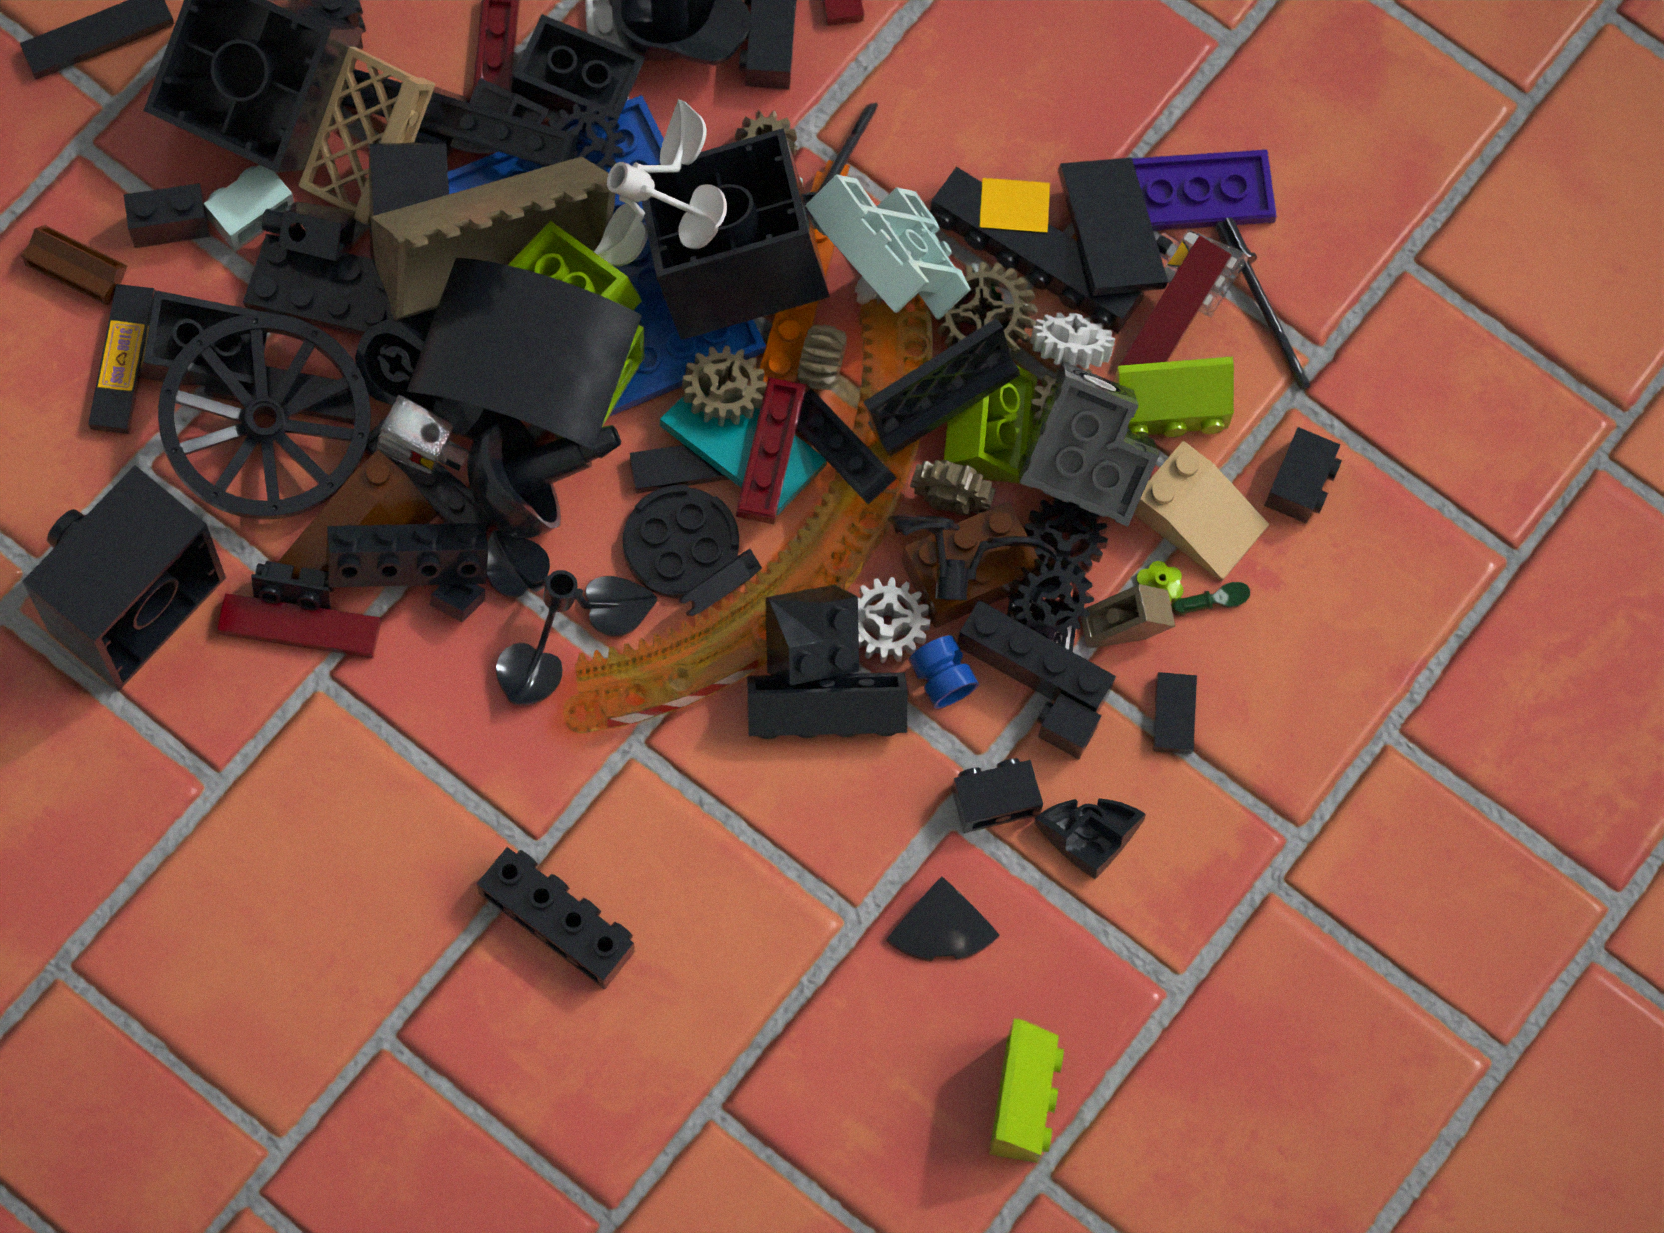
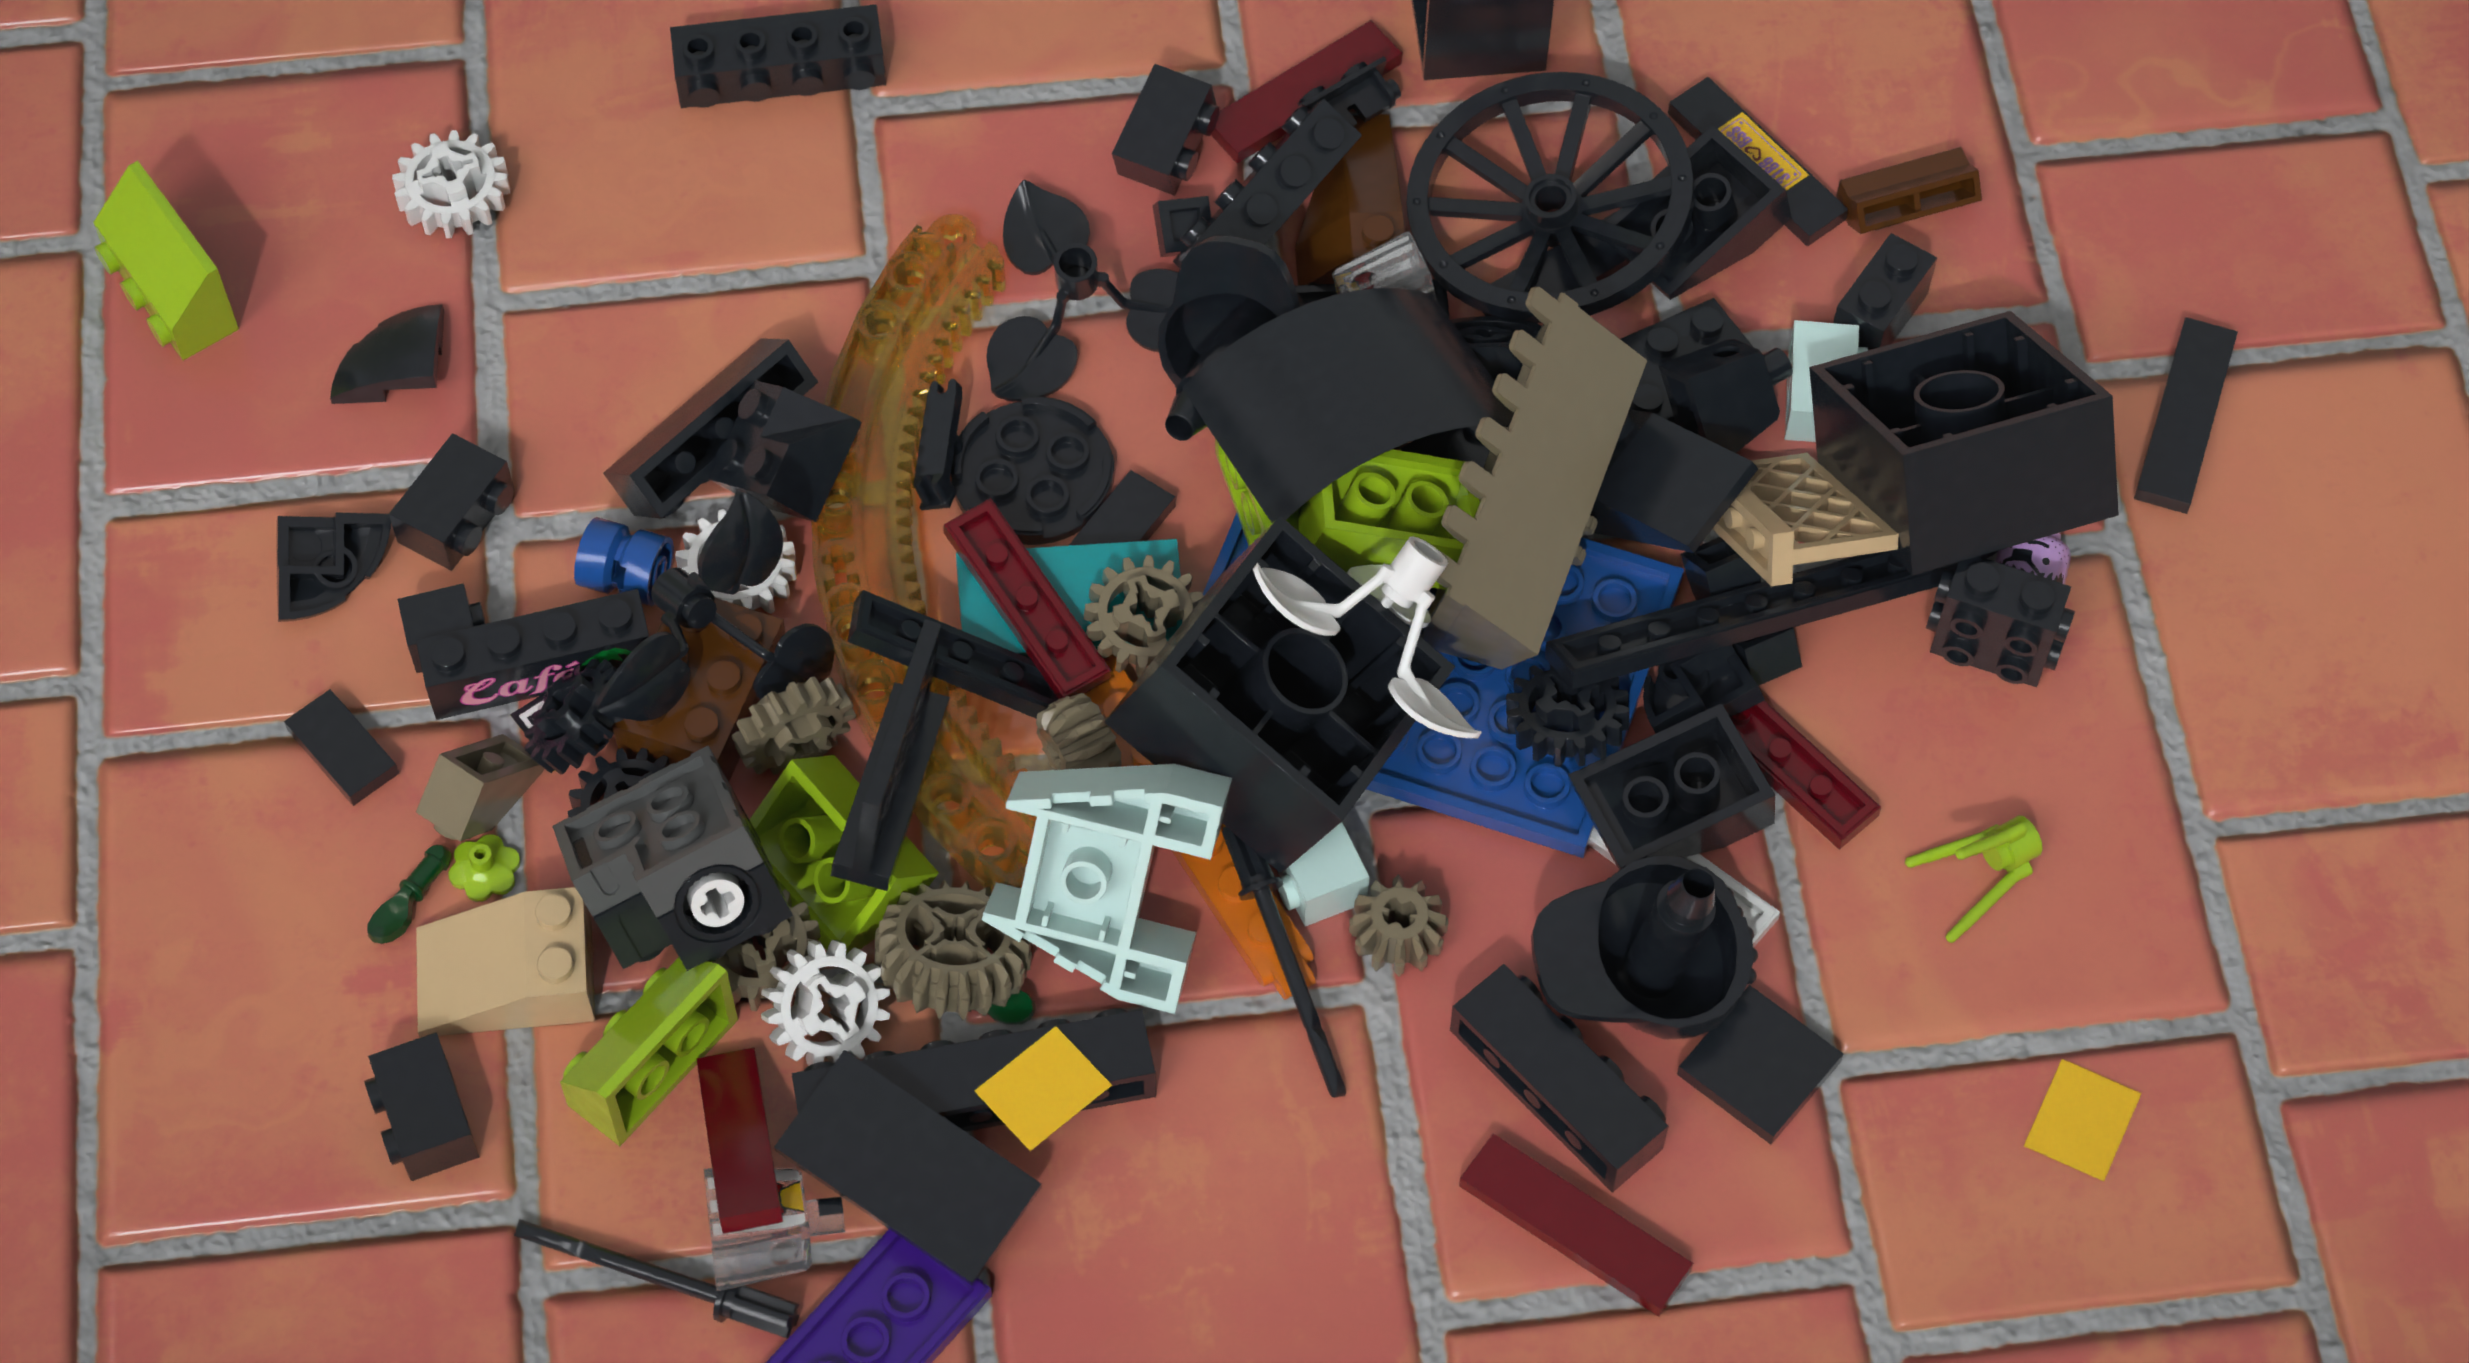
camera: 140 degrees right, 10 degrees down
(406, 657) = (1166, 130): none -> black brick
(827, 1013) = (451, 184): none -> white gear

